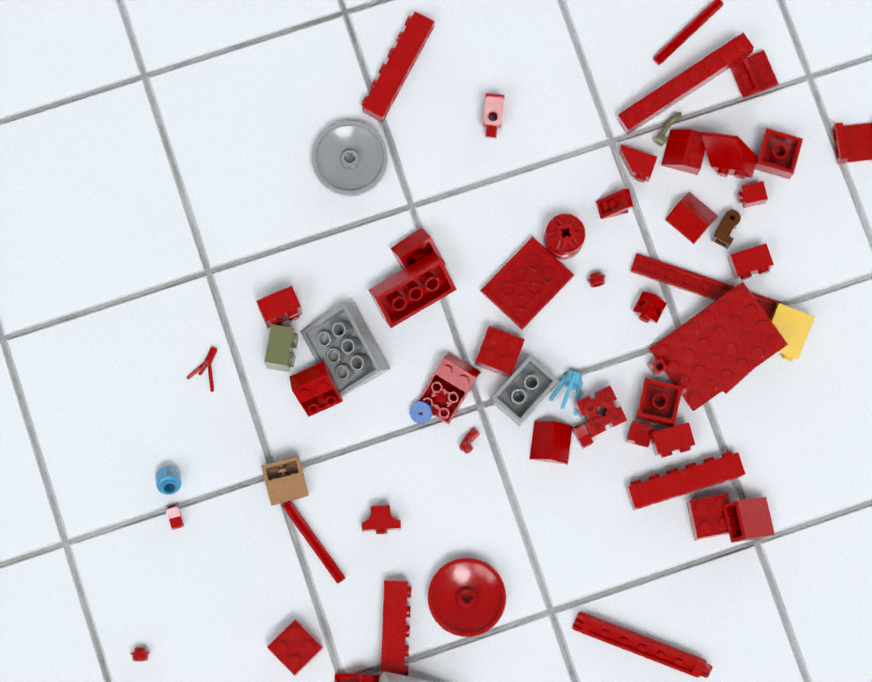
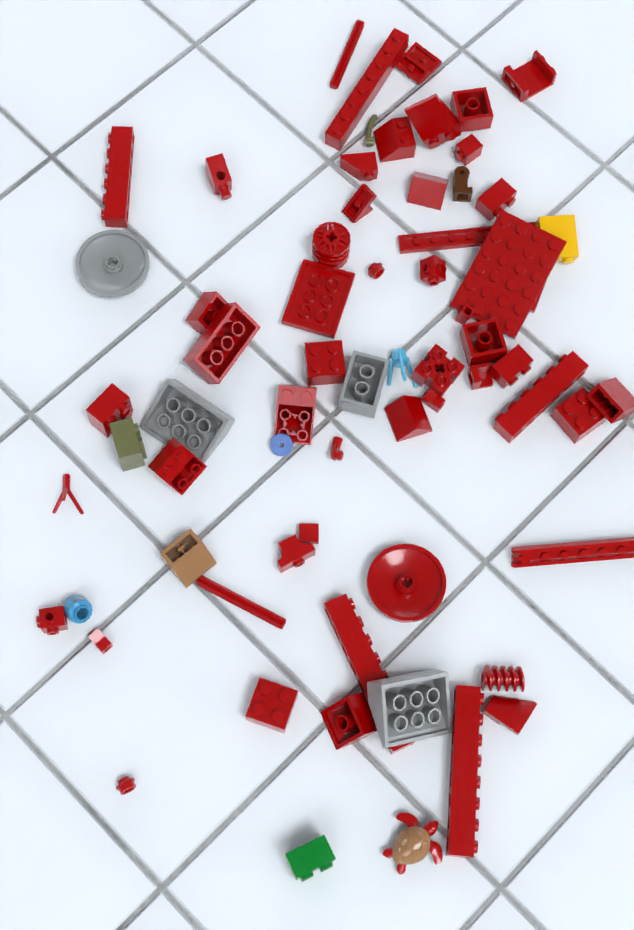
camera: 25 degrees left, 10 degrees down
(141, 479) = (52, 620): none -> red brick
(404, 508) = (309, 533): none -> red tile

